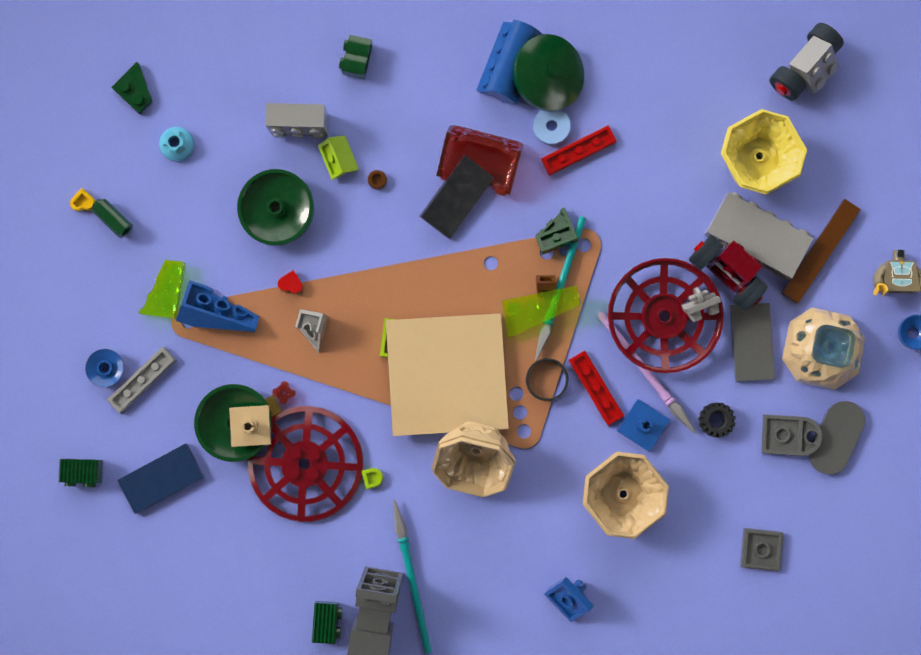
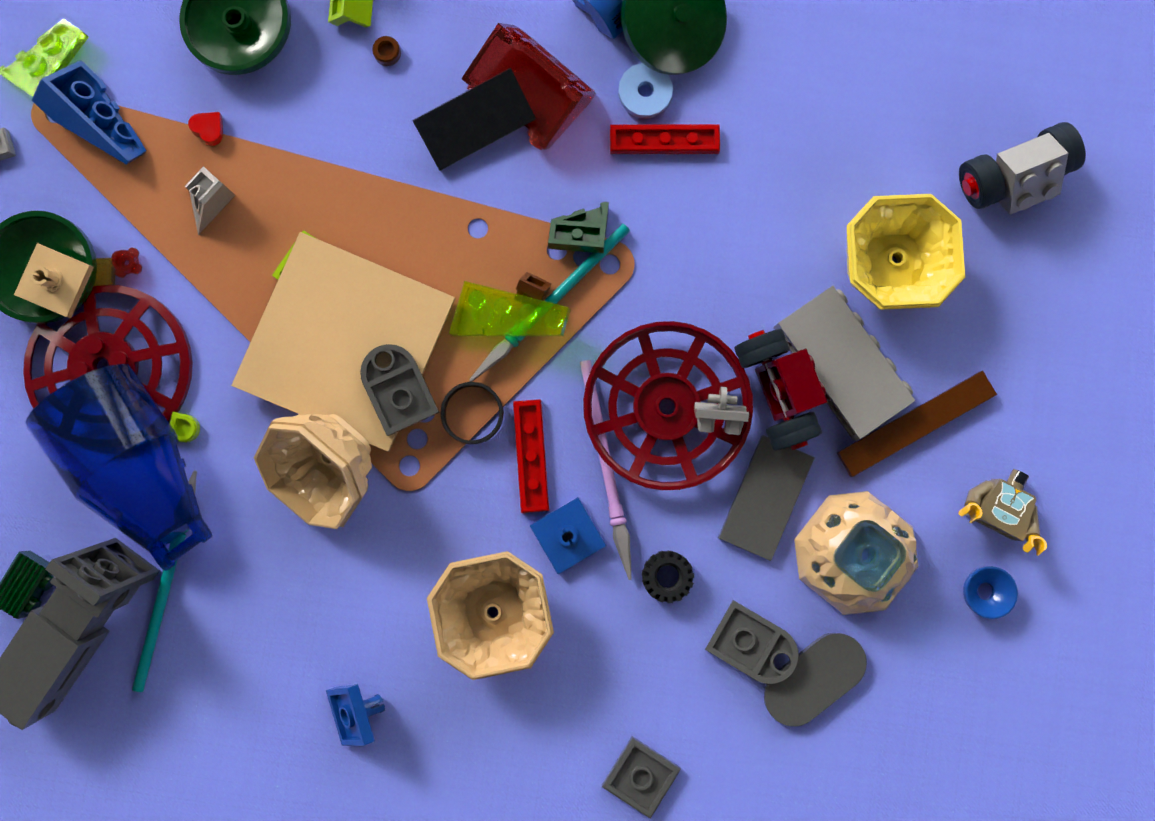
camera: 25 degrees right, 0 degrees up
(351, 515) = (120, 459): none -> clear blue windscreen
(496, 388) = (398, 390): none -> dark grey tile

